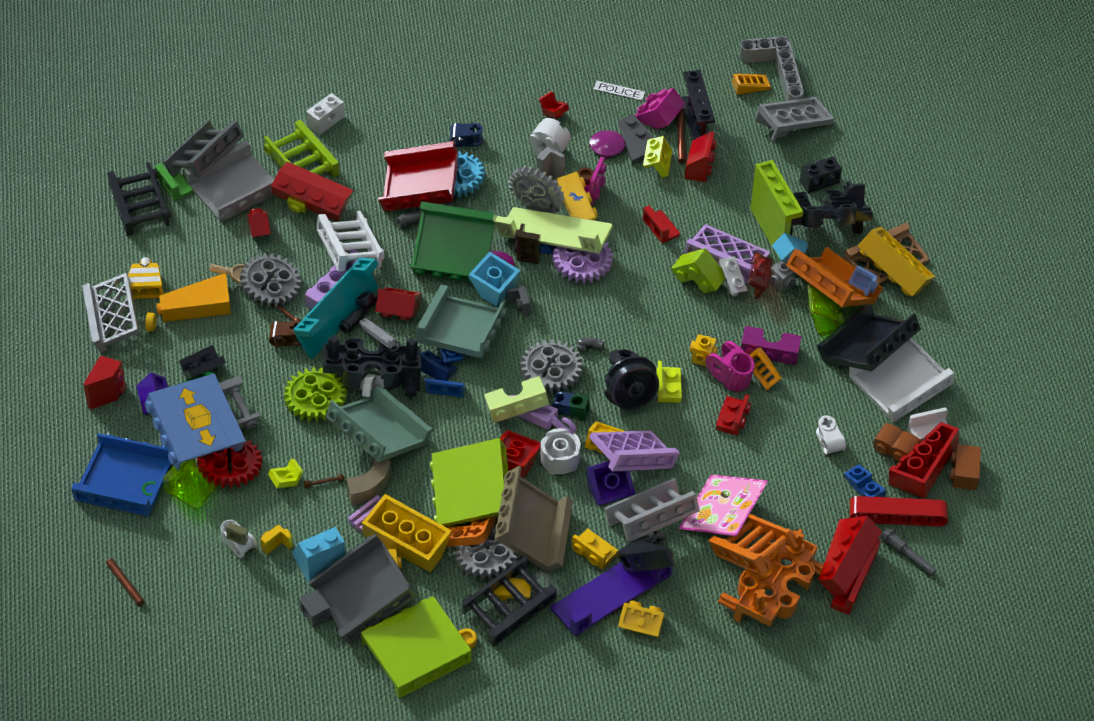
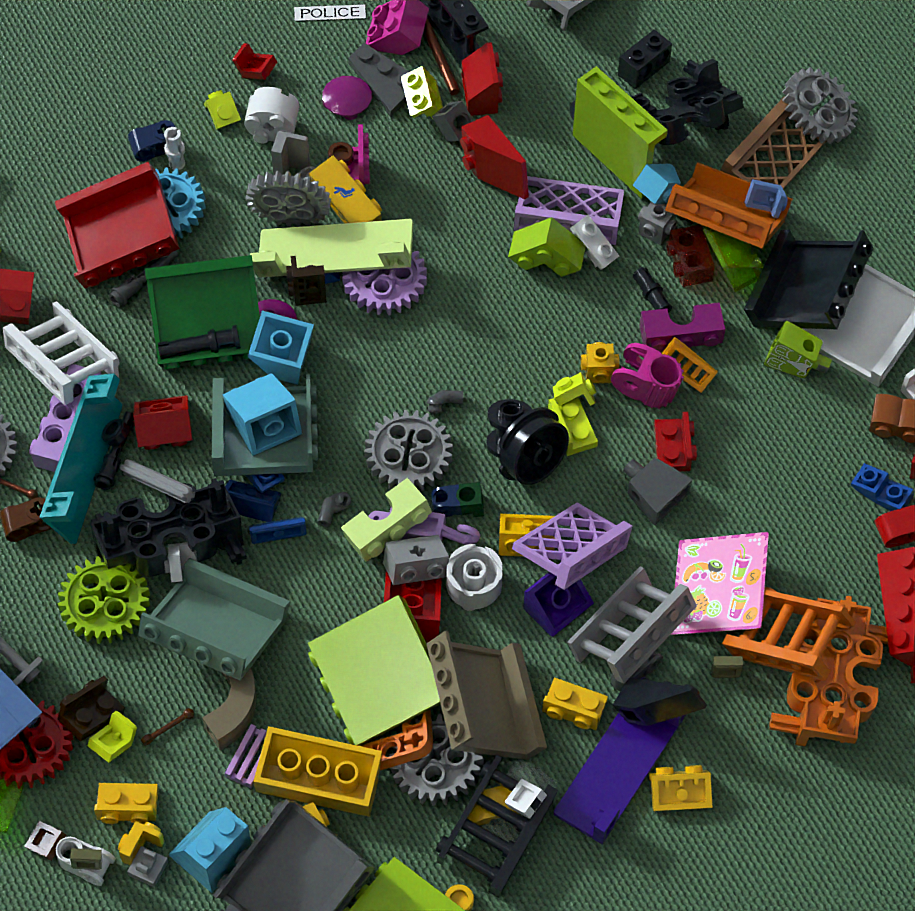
camera: 20 degrees left, 10 degrees up
(215, 520) = (44, 840): none -> plate
(276, 514) = (126, 802): none -> yellow bracket
(276, 556) = (147, 866): none -> light grey tile
(277, 452) = (88, 709): none -> dark brown bracket
(450, 262) = (212, 341): none -> black pin
(463, 313) = (263, 413): none -> medium azure slope
(476, 141) = (174, 148): none -> white pin
(486, 384) = (331, 506): none -> dark grey arm
(519, 128) = (222, 109): none -> neon yellow bracket
(520, 297) = (328, 363): dark grey bracket -> none
(525, 429) = (415, 559): none -> light grey brick
(532, 587) = (525, 798): none -> white plate
(659, 224) = (465, 195): red panel -> none
(664, 174) = (445, 120): none -> dark grey brick
(675, 359) = (572, 387): none -> neon yellow bracket
(685, 203) = (493, 157): none -> red slope
(706, 556) = (727, 666): none -> olive tile
(708, 437) = (656, 487): none -> dark grey torso
(759, 274) = (629, 229): clear red panel -> none
(760, 317) = (651, 290): none -> black pin
(796, 305) = (694, 254): none -> clear red brick
(830, 435) = (811, 436): white piece -> none
(841, 381) = (796, 352): none -> lime torso
(895, 261) = (795, 157): yellow slope -> none
(932, 247) = (831, 121): none -> light grey gear

